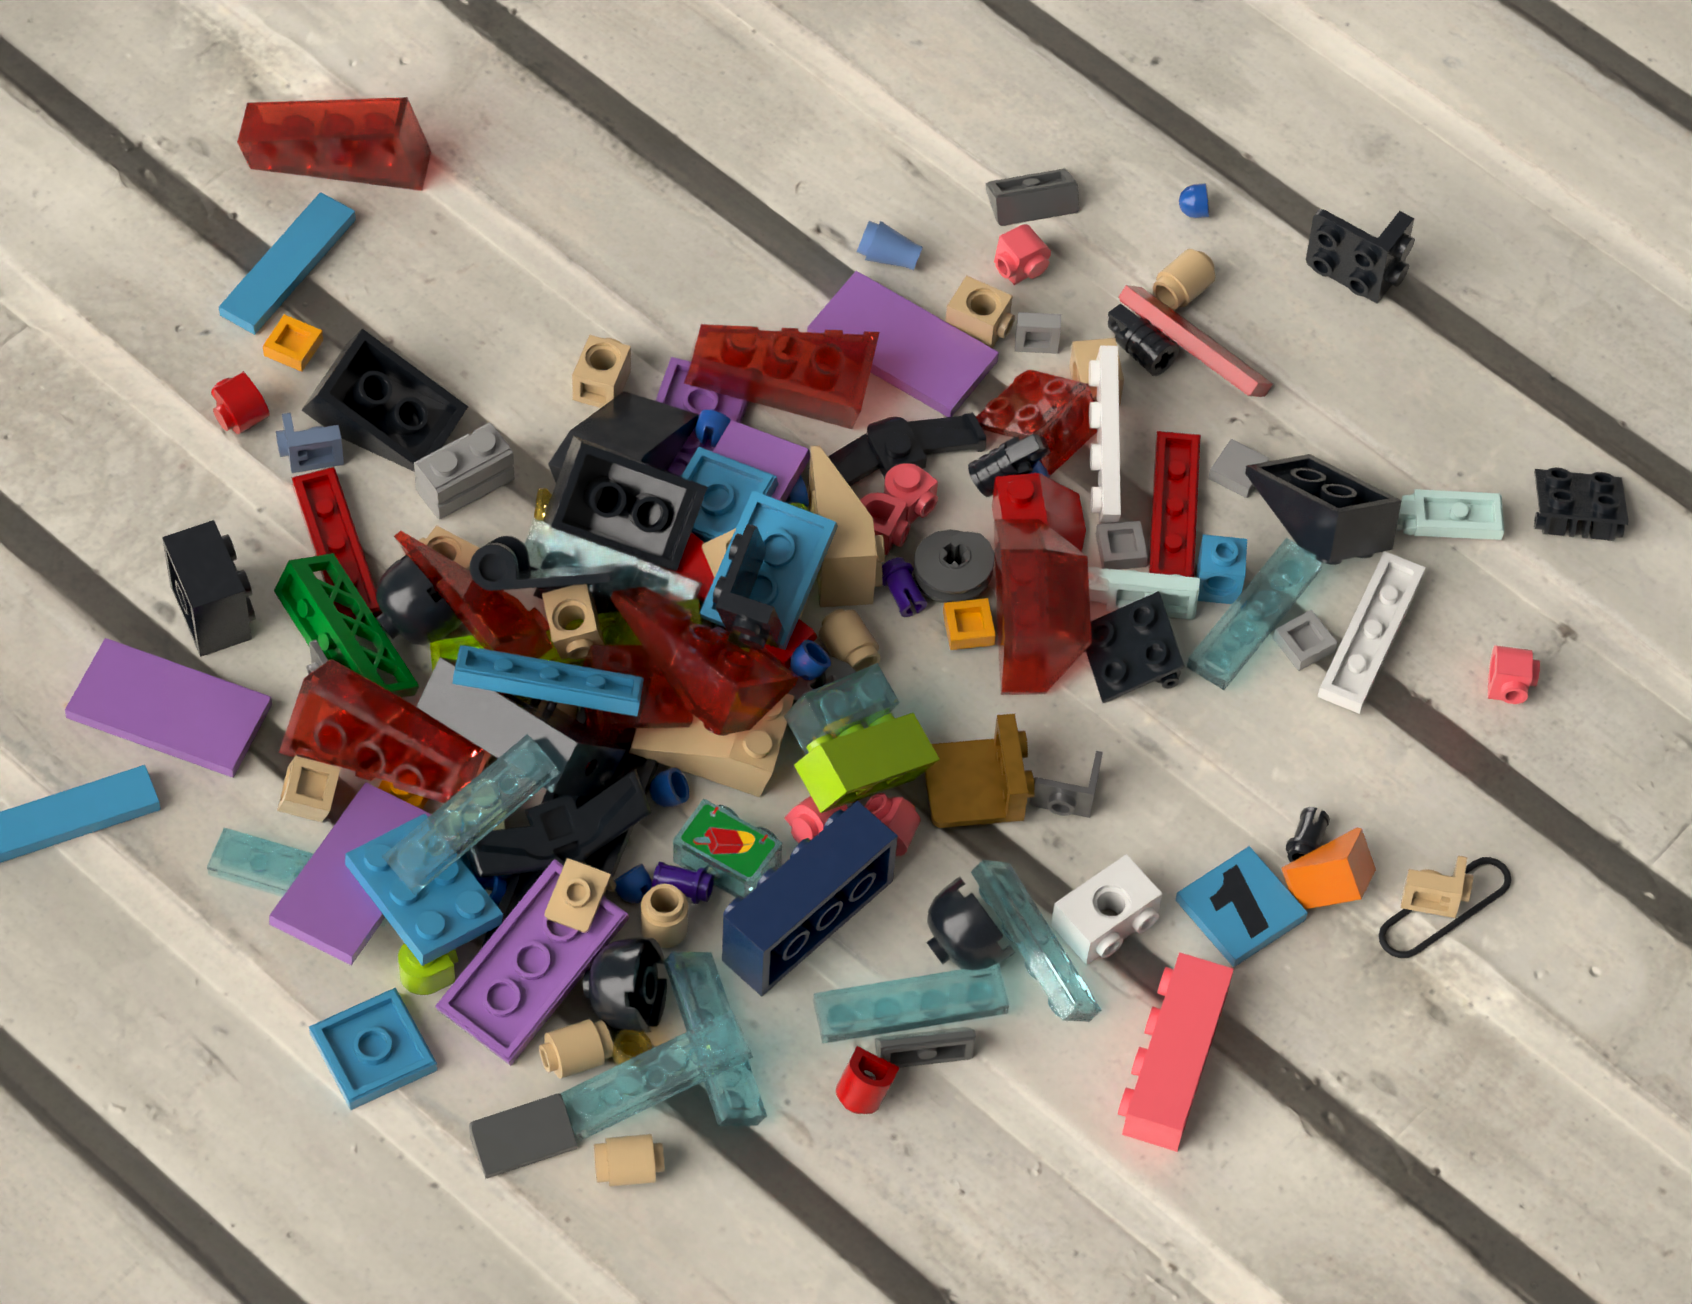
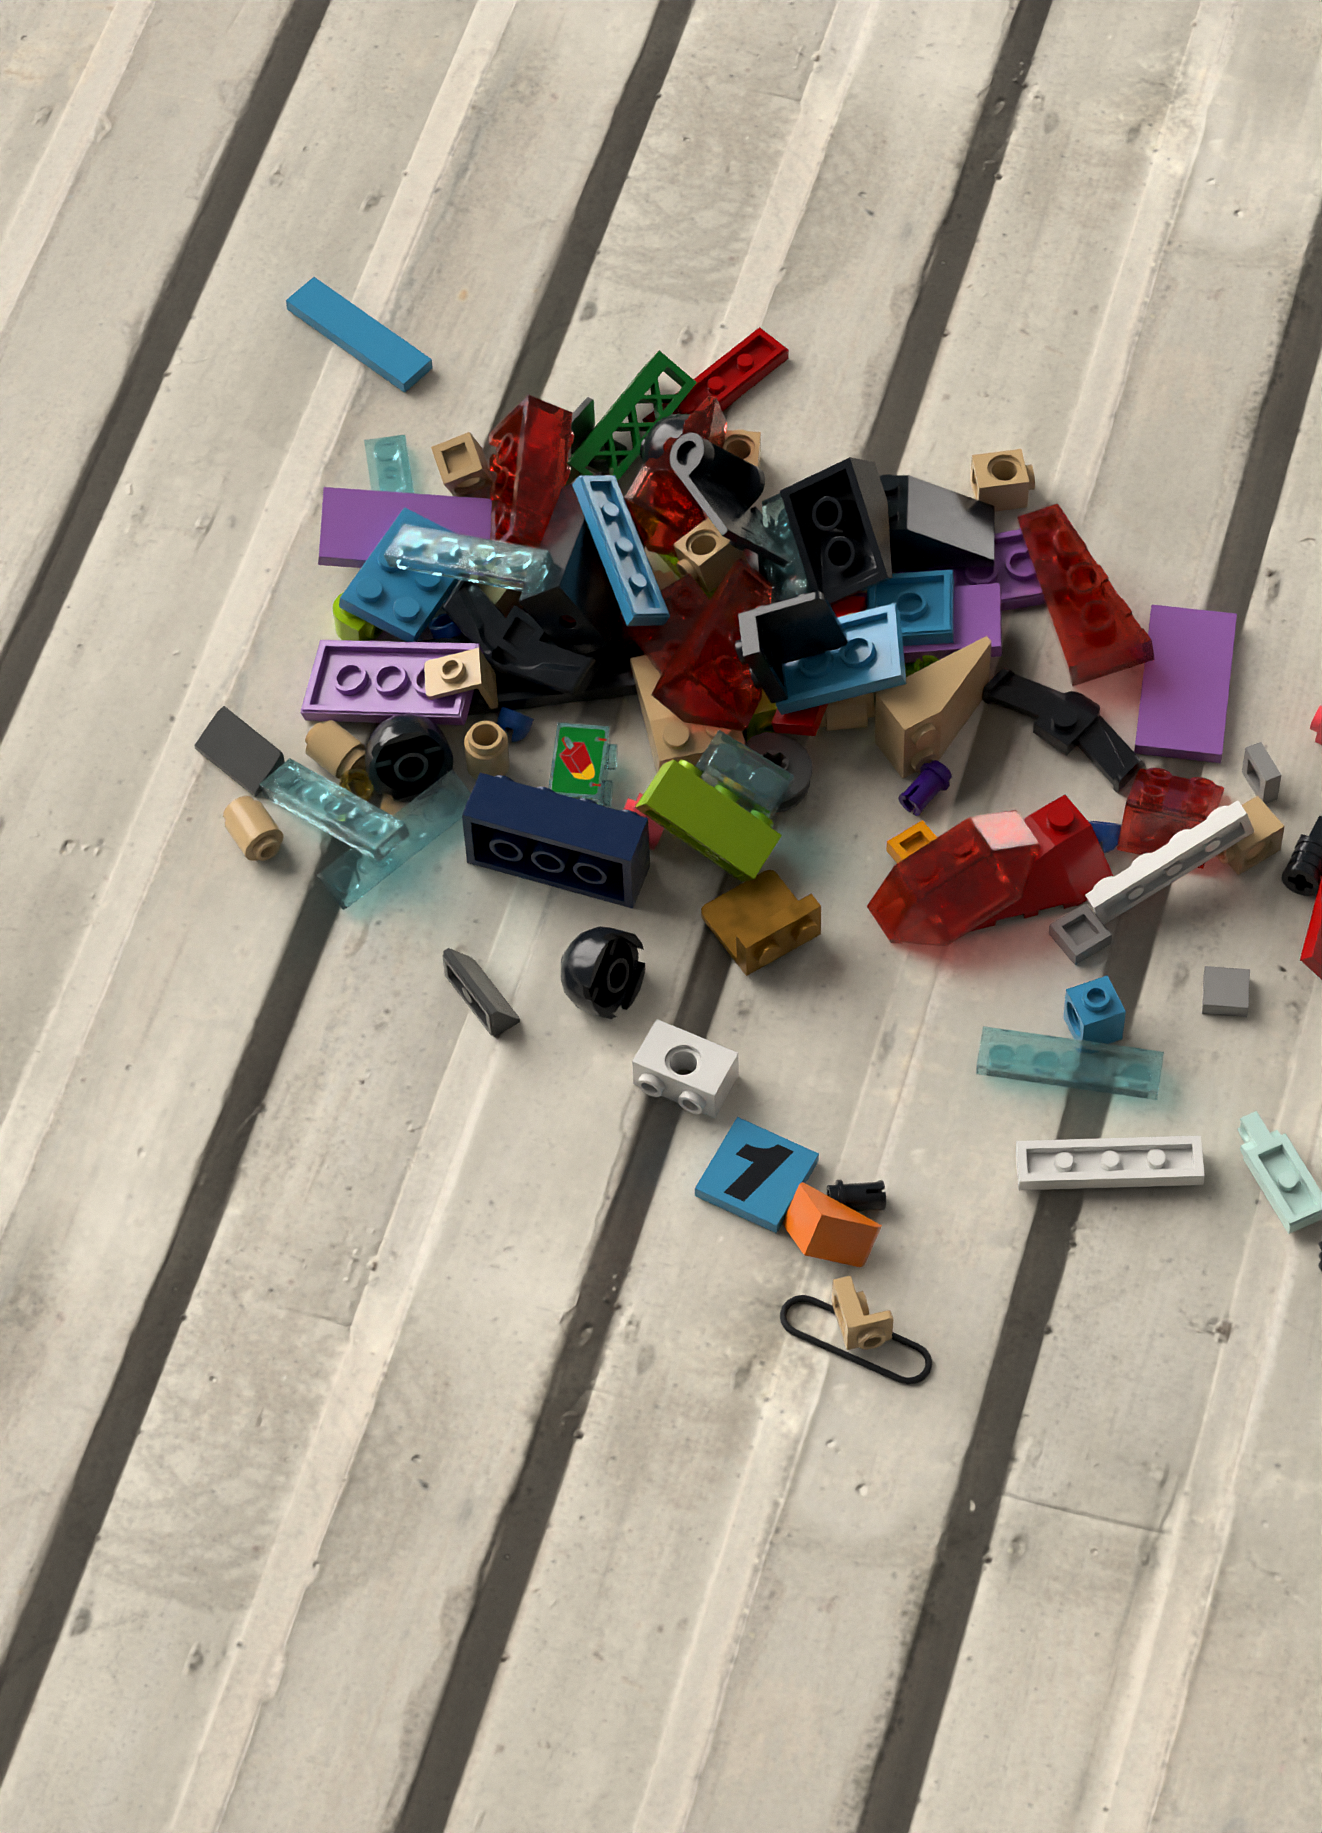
camera: 70 degrees right, 0 degrees up
(168, 707) = (494, 349): medium lavender tile -> none
(209, 587) = (604, 314): black brick -> none
(238, 403) = (803, 259): red plate -> none
(287, 263) = (971, 229): dark azure tile -> none
(293, 343) = (889, 267): light orange plate -> none
(310, 448) = (793, 322): sand blue bracket -> none
(338, 140) = (1107, 201): clear red wedge -> none
(373, 1048) = (267, 622): dark azure tile -> none
(384, 403) = (866, 351): black slope -> none
(464, 470) = (834, 429): light grey brick -> none
(669, 788) = (624, 711): blue hinge -> none
(693, 884) = (536, 762): dark purple pin -> none
(711, 426) = (987, 574): blue hinge -> none
(809, 660) = (785, 745): blue hinge -> none
(849, 639) = (840, 771): tan brick -> none
(863, 1092) = (414, 960): red plate -> none
(887, 246) = (1279, 624): medium blue cone -> none
(888, 518) = (976, 740): coral plate -> none
(898, 816) = (675, 874): coral plate -> none
(910, 1003) = (512, 964): clear light blue plate -> none
(913, 486) = (1024, 749): coral plate -> none
(953, 565) = (961, 798): dark grey piece -> none
(981, 311) = (1251, 706): tan brick -> none
(1011, 458) = (1096, 802): black hinge -> none
(1036, 941) = (622, 1029): clear light blue plate -> none
(1067, 798) = (791, 1006): flat silver bracket -> none
(1123, 587) = (1032, 962): light aqua hinge -> none
(1134, 648) = (972, 985): black hinge -> none
(1174, 504) = (1155, 955): red tile -> none
(1176, 1052) = (575, 1178): coral brick -> none
(1305, 640) = (1070, 1115): light grey tile -> none
(1327, 508) = (1212, 1065): black slope -> none
(1511, 674) = (1134, 1293): coral plate -> none

